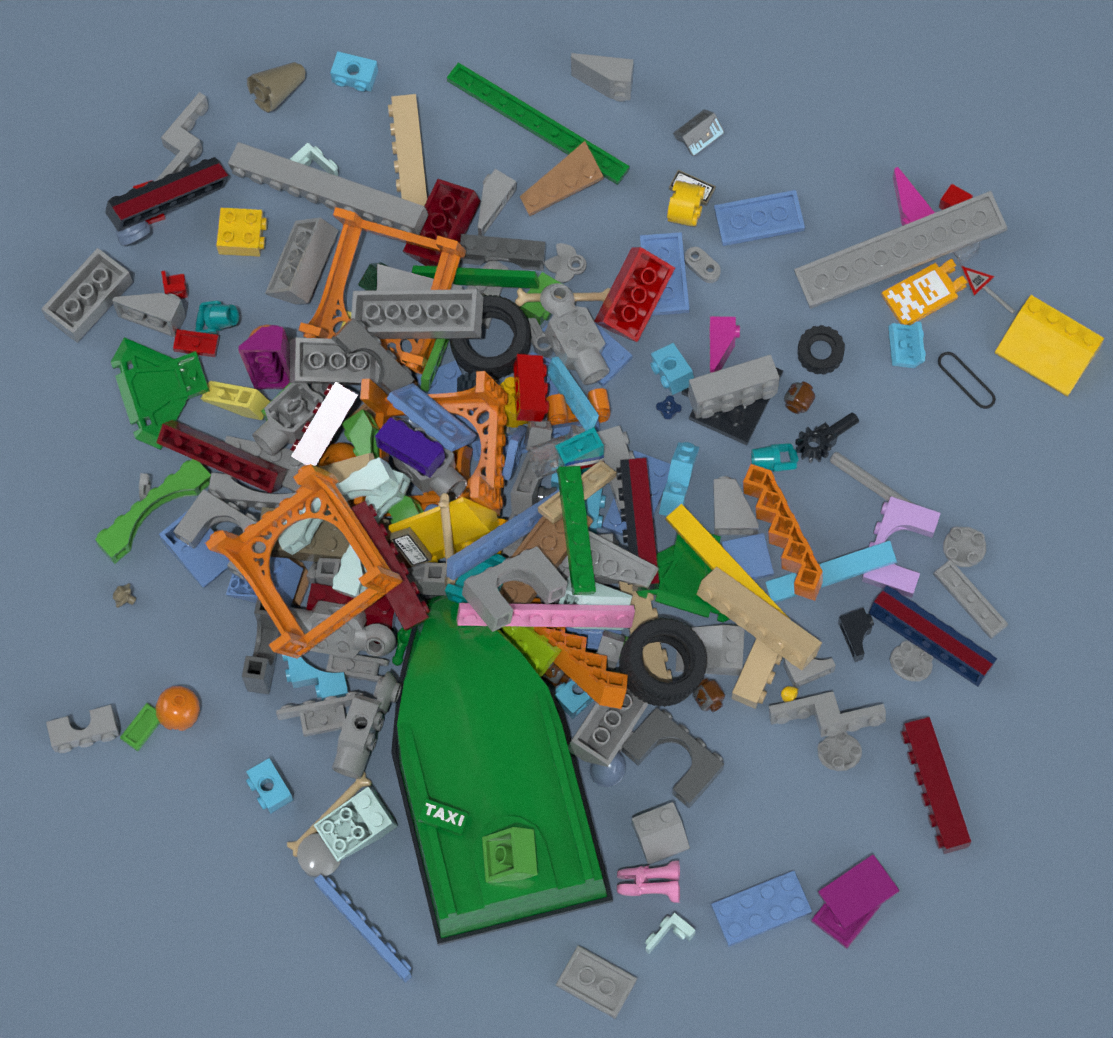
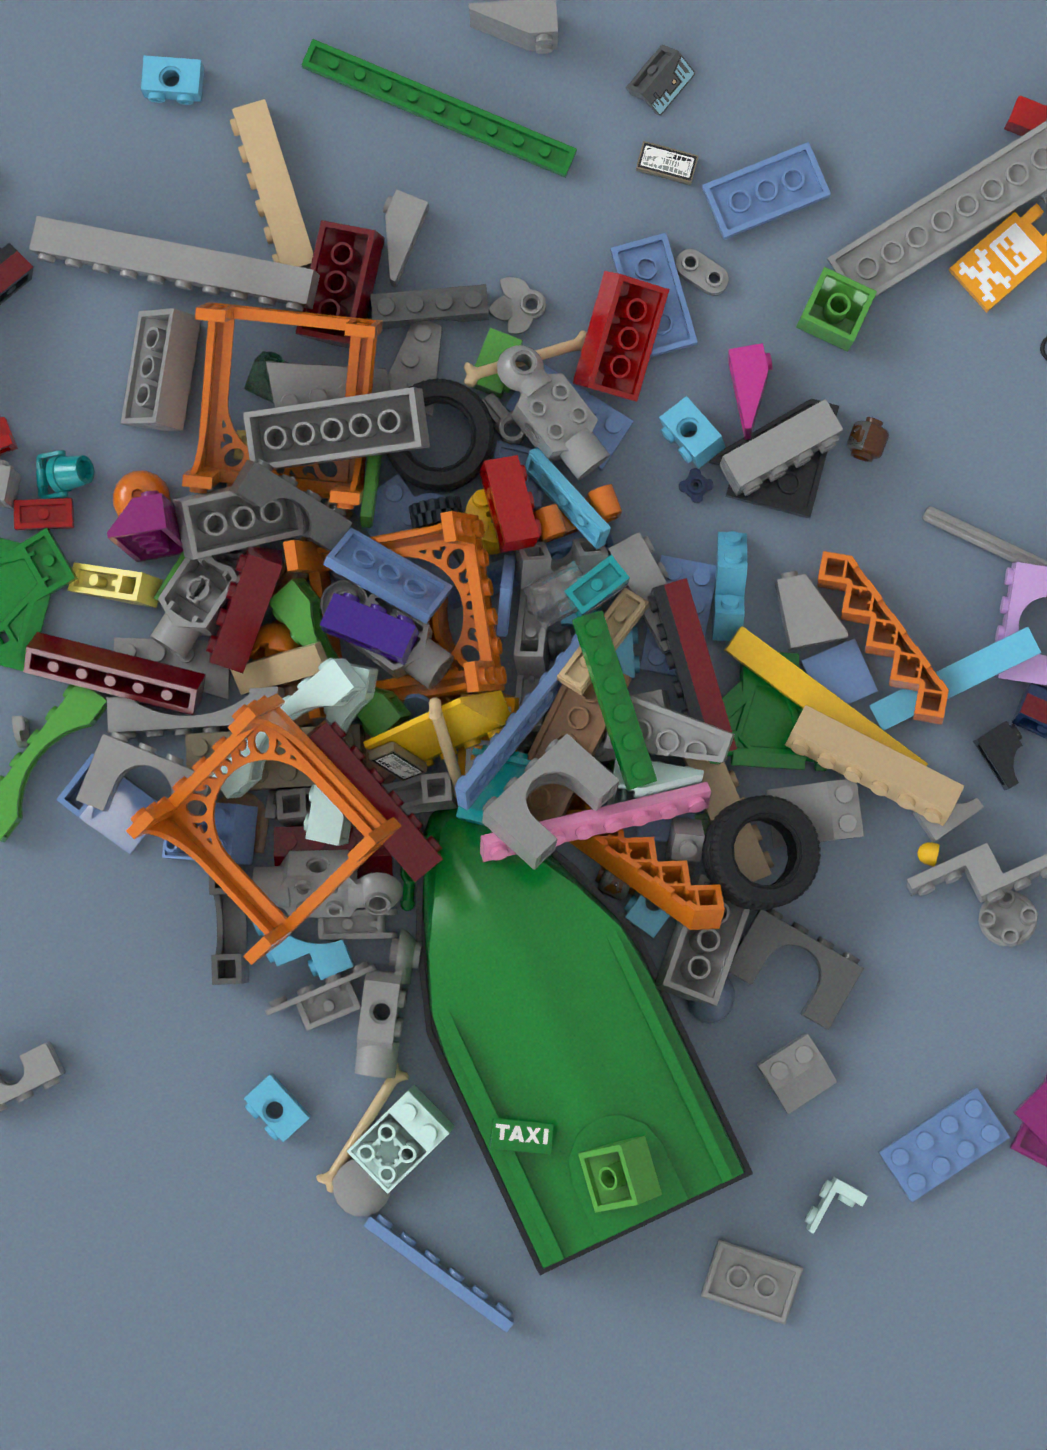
camera: 10 degrees left, 15 degrees up
(123, 595) = (27, 886): dark tan plant -> none
(141, 727) = (93, 1058): bright green tile -> none
(177, 708) = (134, 1026): orange cylinder -> none
(241, 232) = (69, 343): yellow brick -> none
(275, 84) = (69, 119): dark tan cone -> none
(308, 153) = (130, 221): light aqua bracket -> none
(486, 277) = (411, 350): green tile -> none
(532, 646) = (588, 865): lime wing -> none
(565, 179) = (495, 183): medium nougat wing -> none
(643, 874) = (783, 1131): bright pink piece -> none
(685, 204) = (665, 192): yellow brick -> none
(709, 695) = (829, 877): reddish brown head -> none
(756, 675) = (881, 837): tan brick -> none
(769, 457) = (844, 533): teal piece -> none
(792, 304) = (836, 309): none -> bright green slope
(824, 436) = (911, 489): black gear -> none
(826, 334) = (883, 343): black tyre -> none
(907, 344) = (997, 337): medium azure bracket -> none
(910, 202) = (967, 133): dark pink slope -> none

